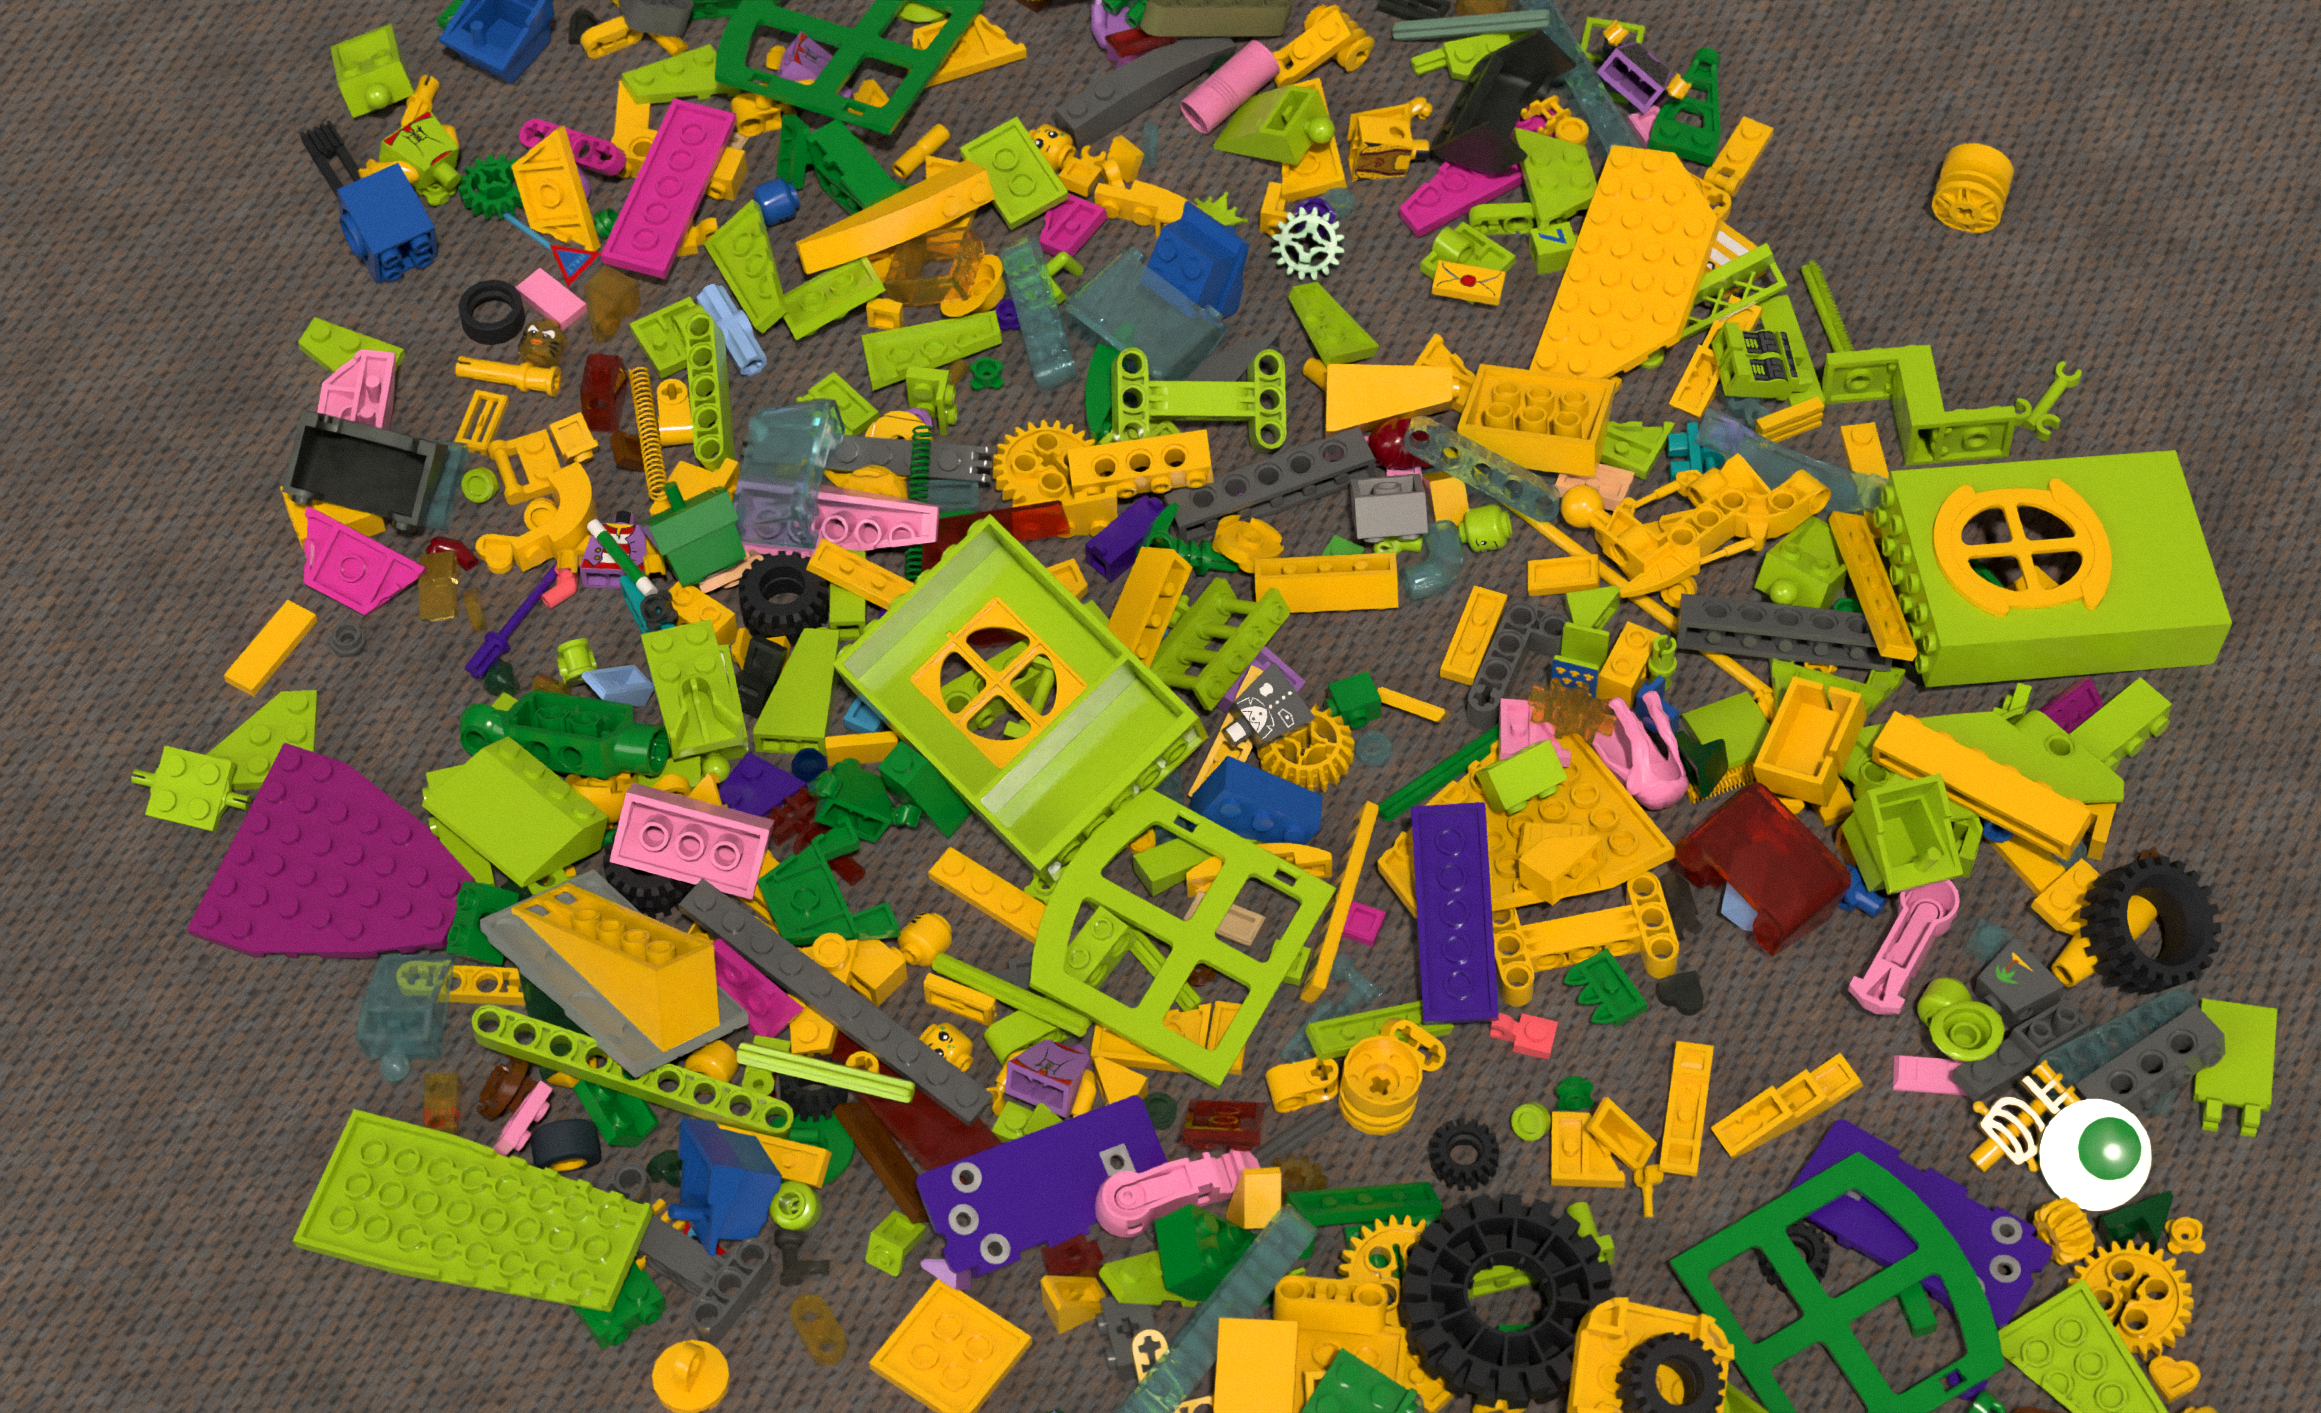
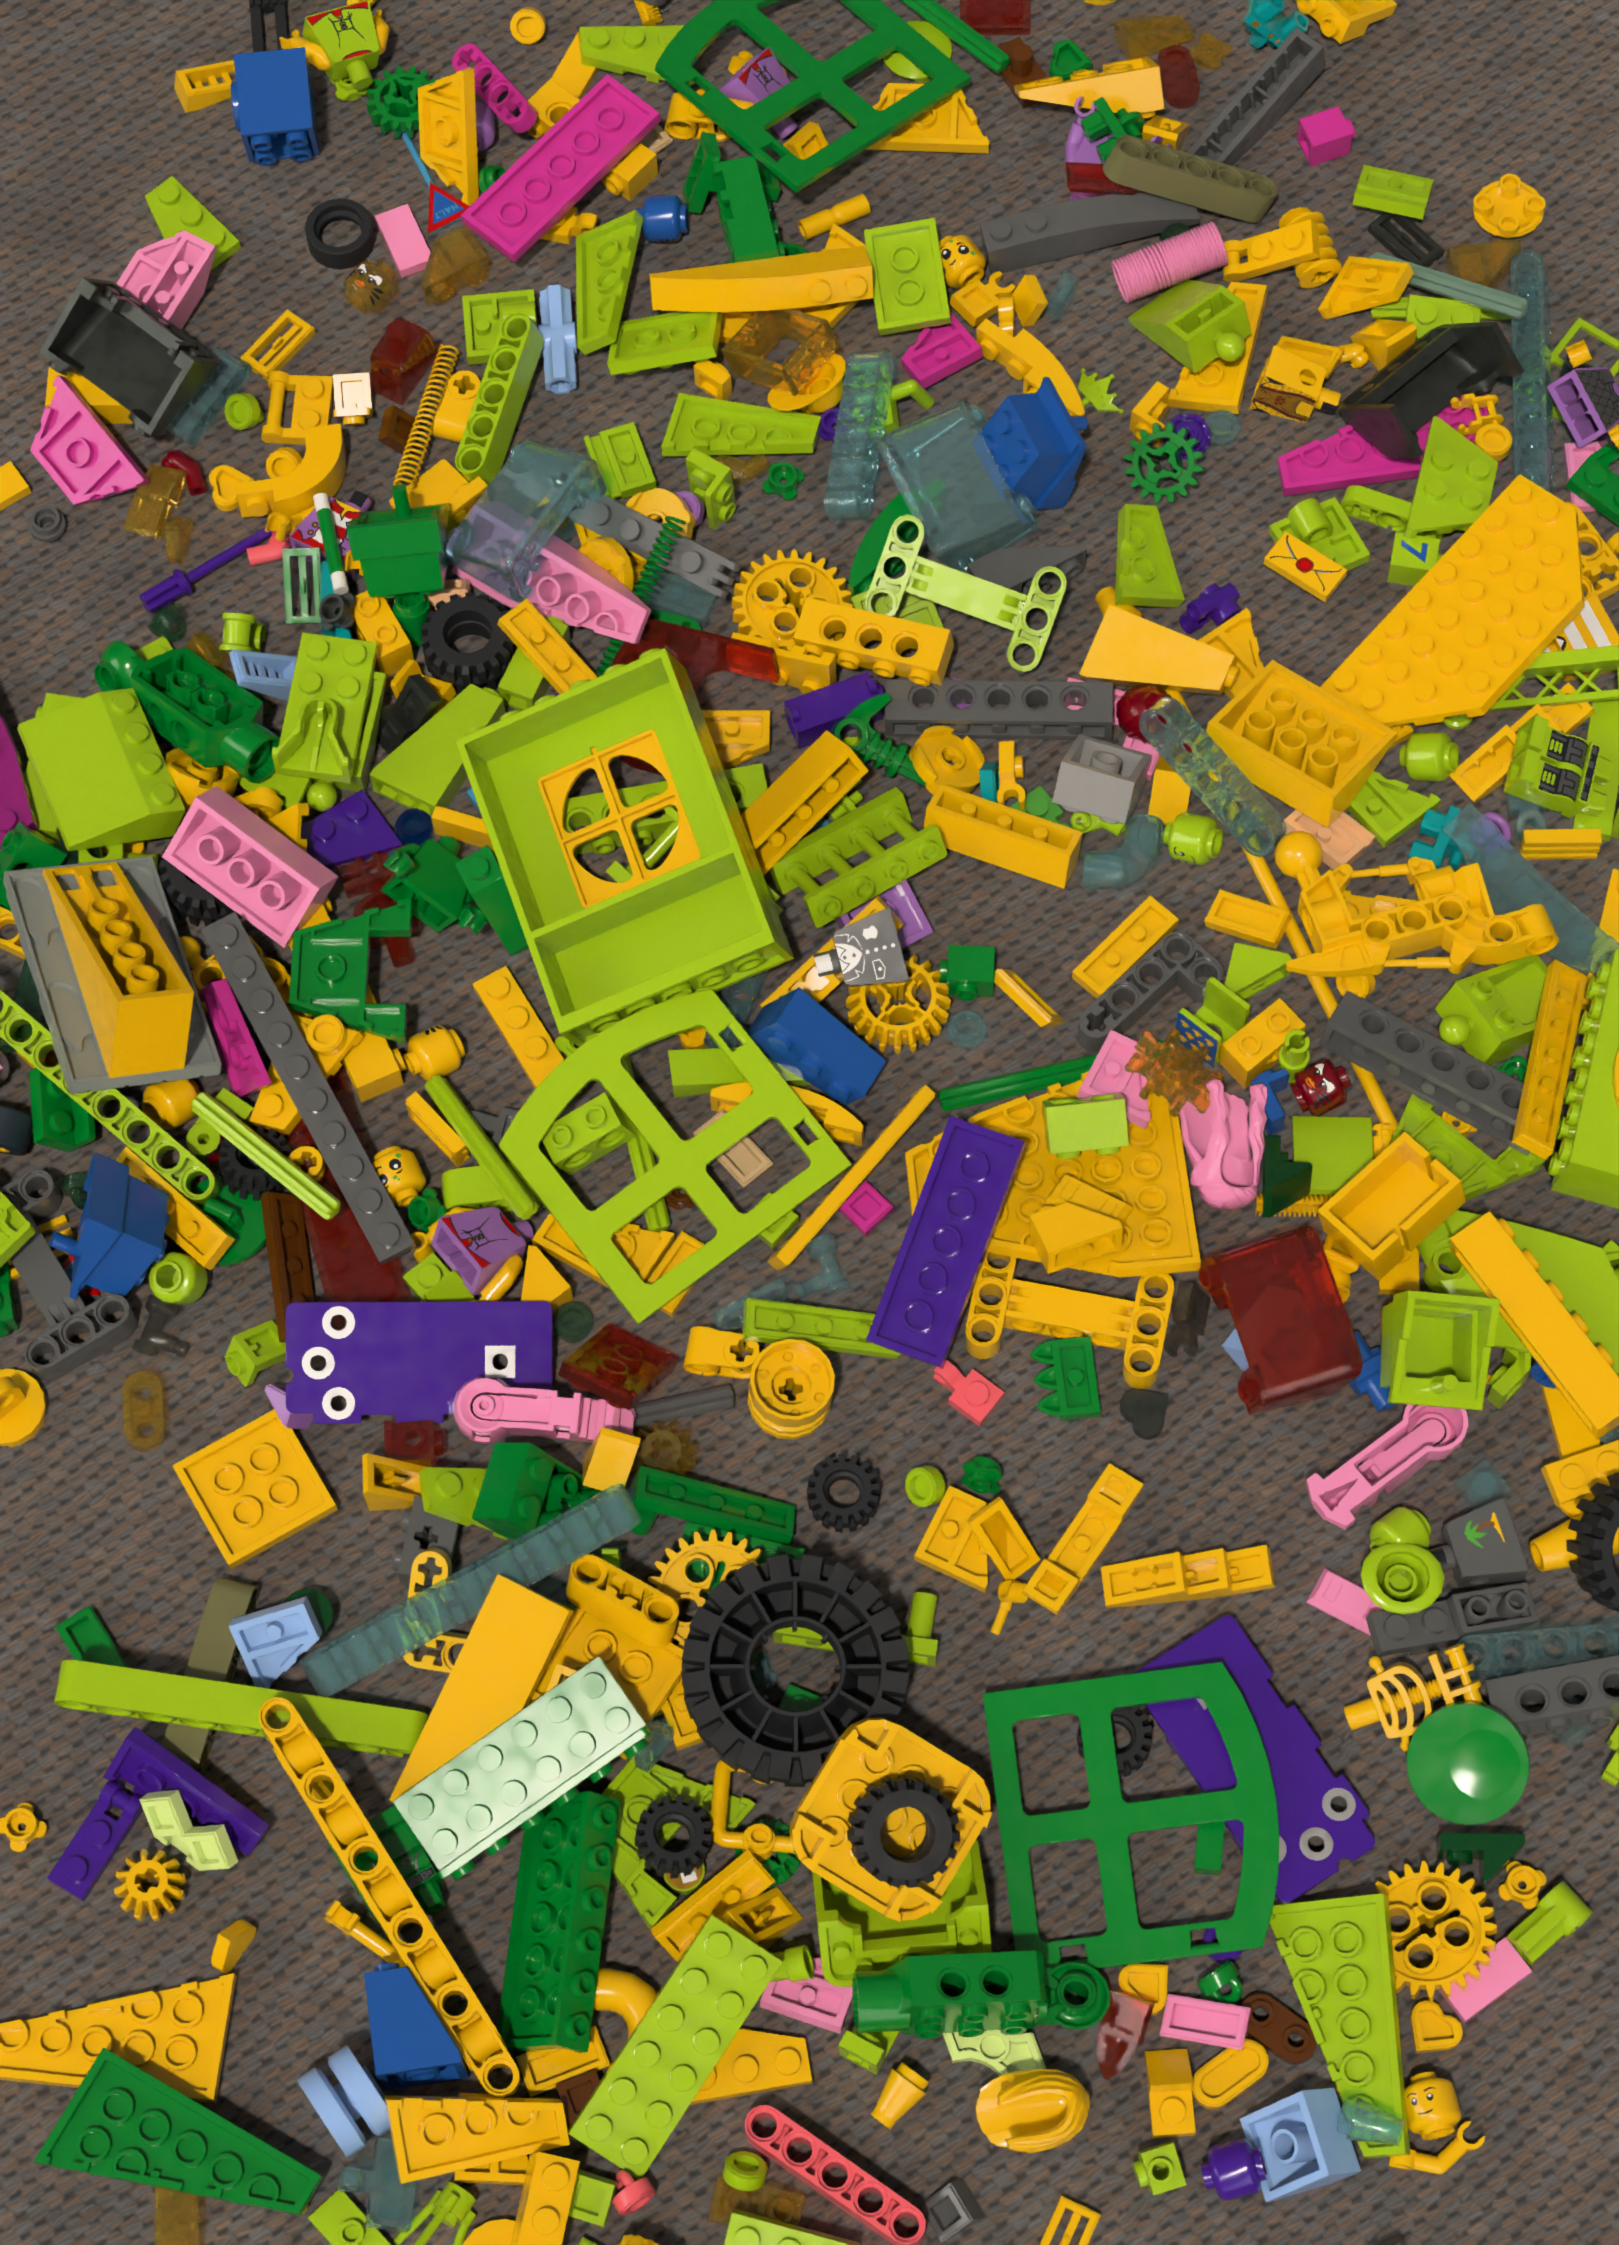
camera: 25 degrees right, 10 degrees up
(300, 247) = (200, 95): none -> yellow slope
(523, 376) = (338, 313): yellow pin -> none
(573, 89) = (528, 25): none -> yellow tile
(621, 632) = (287, 554): none -> tile
(723, 588) = (411, 614): none -> green cone
(977, 1065) = (425, 1210): none -> green plate
(1291, 543) = (989, 780): none -> teal tile
(1303, 530) = (1010, 769): none -> yellow plate
(1402, 49) = (1365, 285): none -> yellow wing
(1406, 340) = (1212, 604): none -> dark purple plate
(1417, 1037) = (852, 1353): yellow beam -> none
(1441, 86) = (1385, 340): none -> yellow slope
(1647, 393) = (1429, 756): none -> lime head
(1694, 682) = (1320, 1087): none -> dark red head
(2065, 1230) = (1396, 1830): yellow gear -> none
(2205, 1314) = (1504, 1973): none -> bright pink tile
(2224, 1251) = (1555, 1917): none -> lime piece

